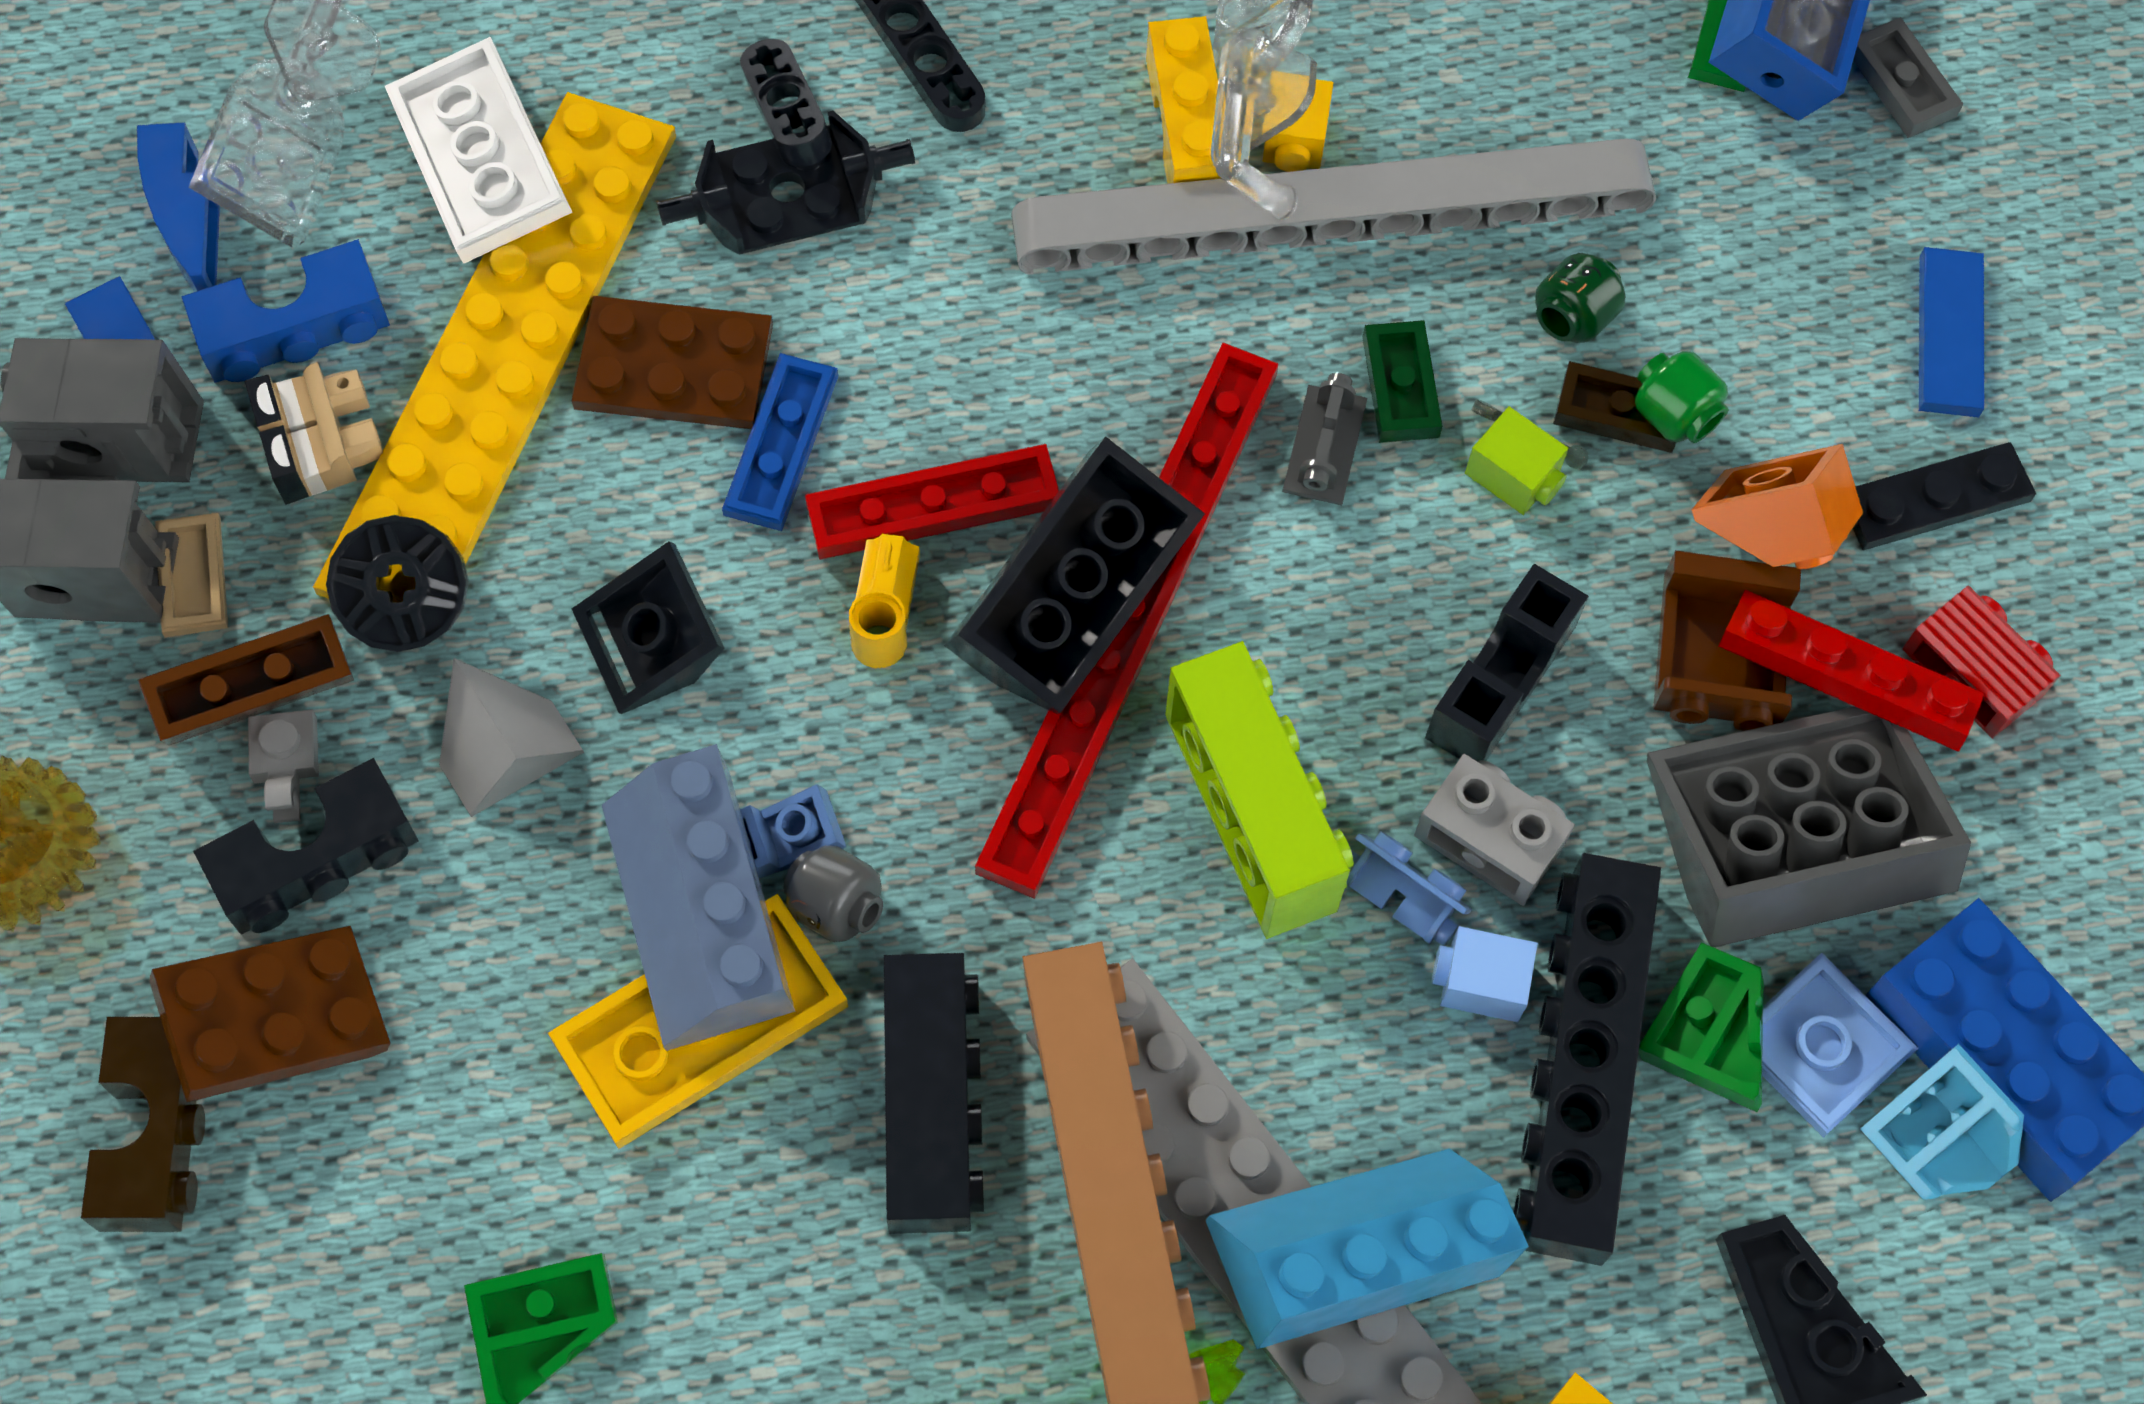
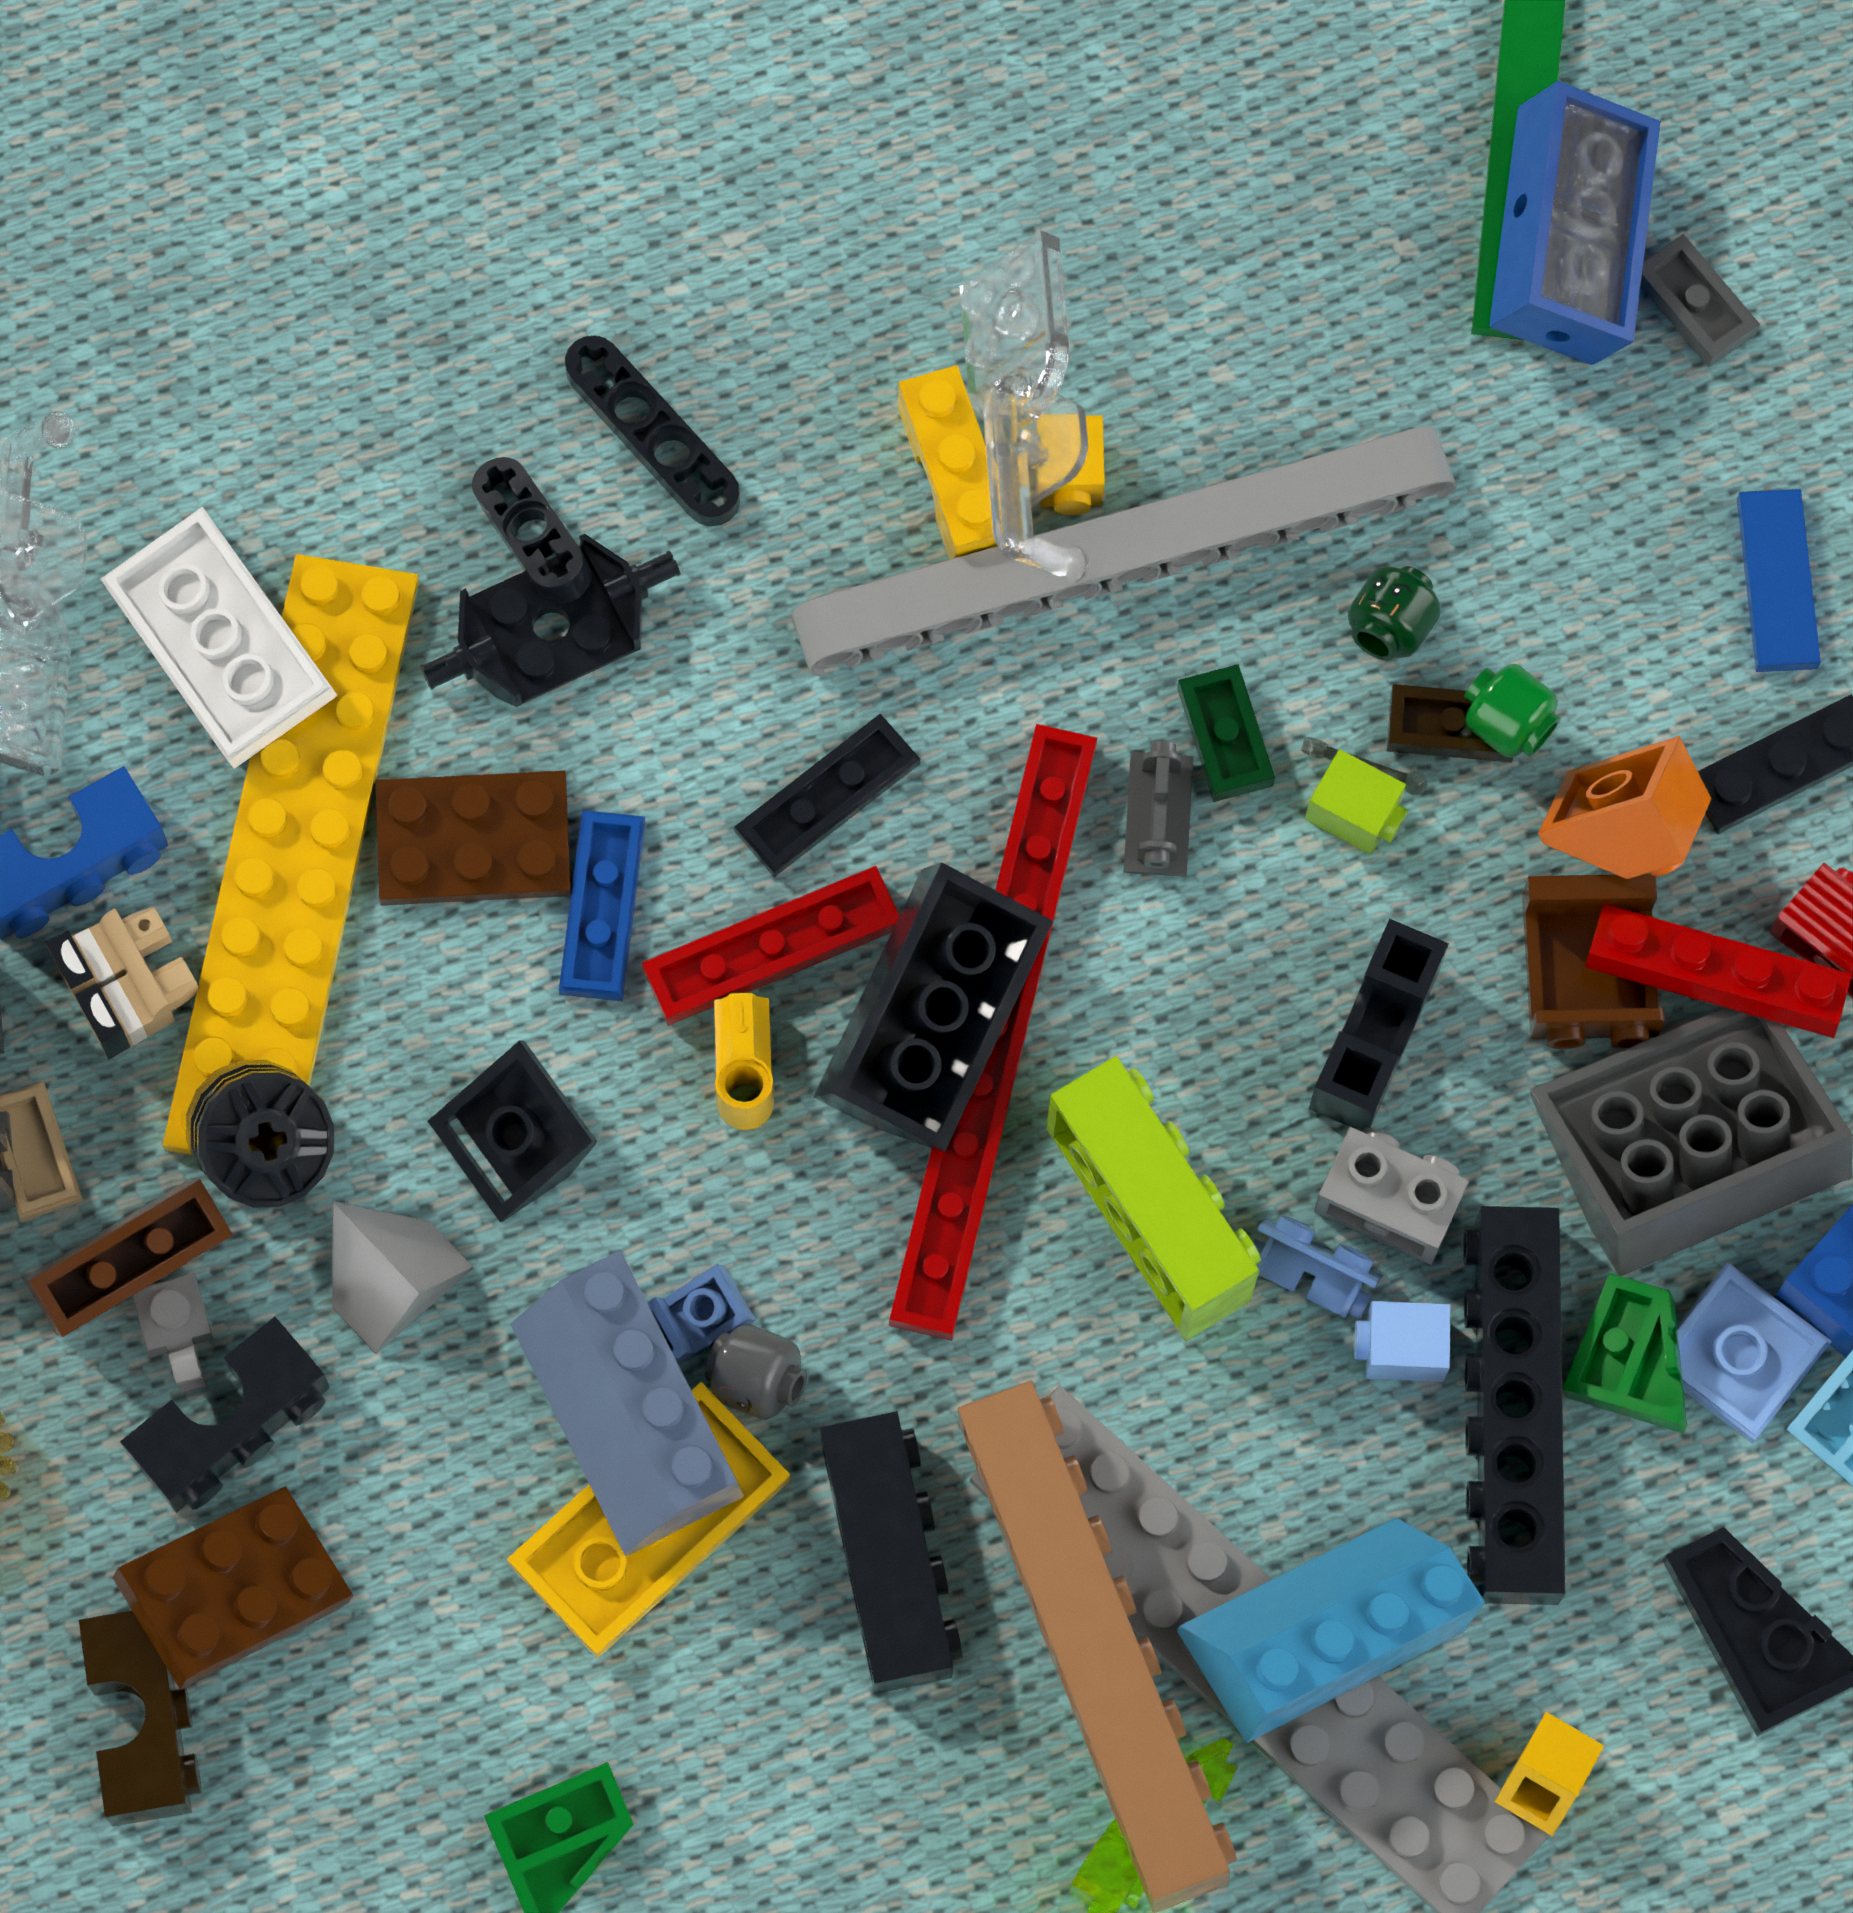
camera: 10 degrees left, 5 degrees up
(1013, 378) = (827, 795): none -> black tile

